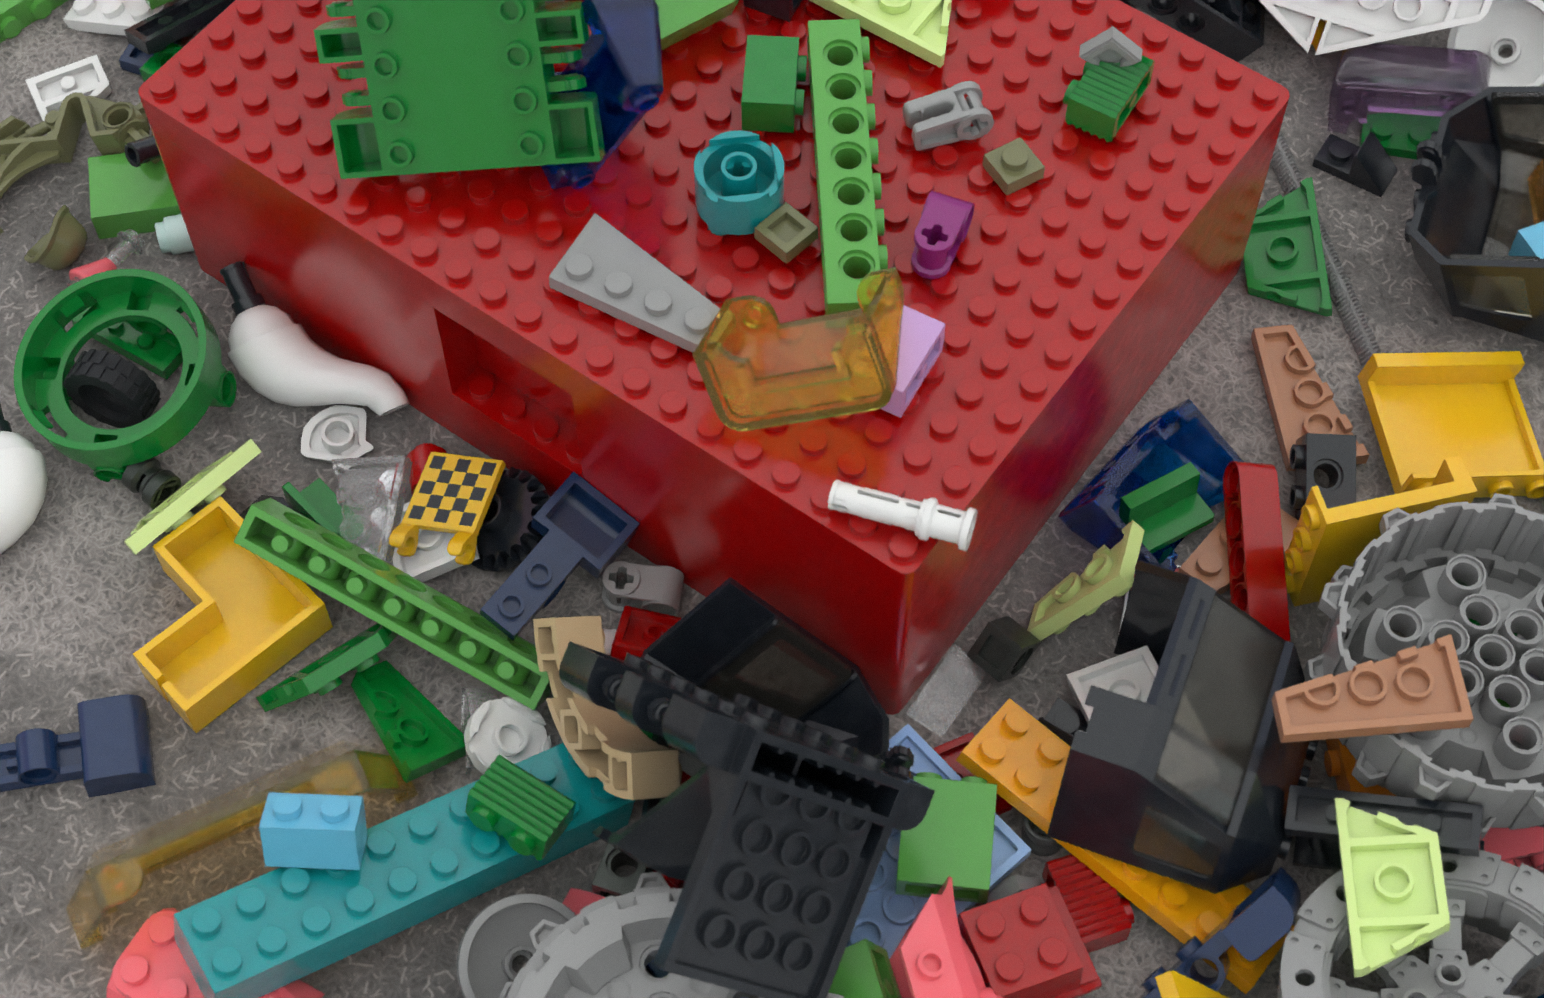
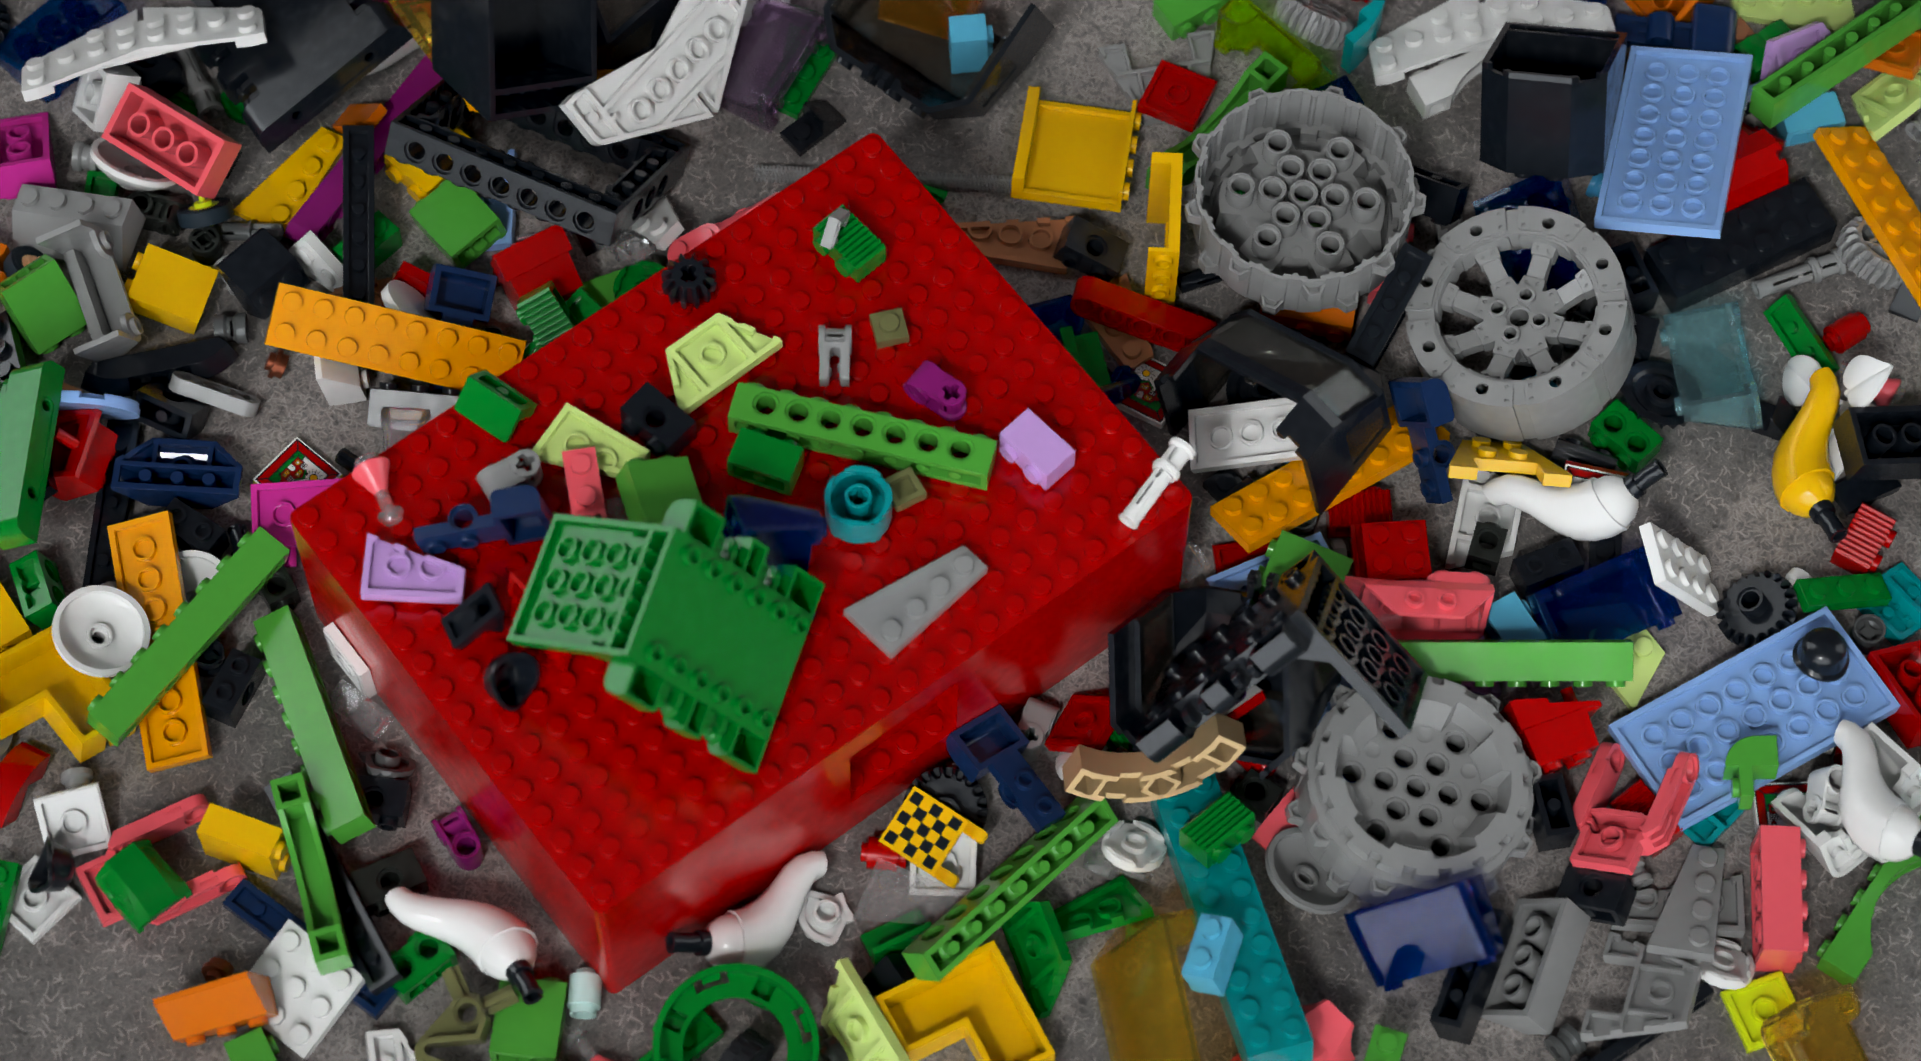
camera: 75 degrees left, 5 degrees up
(803, 368) = (1030, 497): clear yellow windscreen -> none
(1103, 578) = (1141, 407): yellowish green wing -> none
(1389, 886) = (1438, 316): yellowish green wing -> none
(1395, 695) = (1329, 263): nougat wing -> none

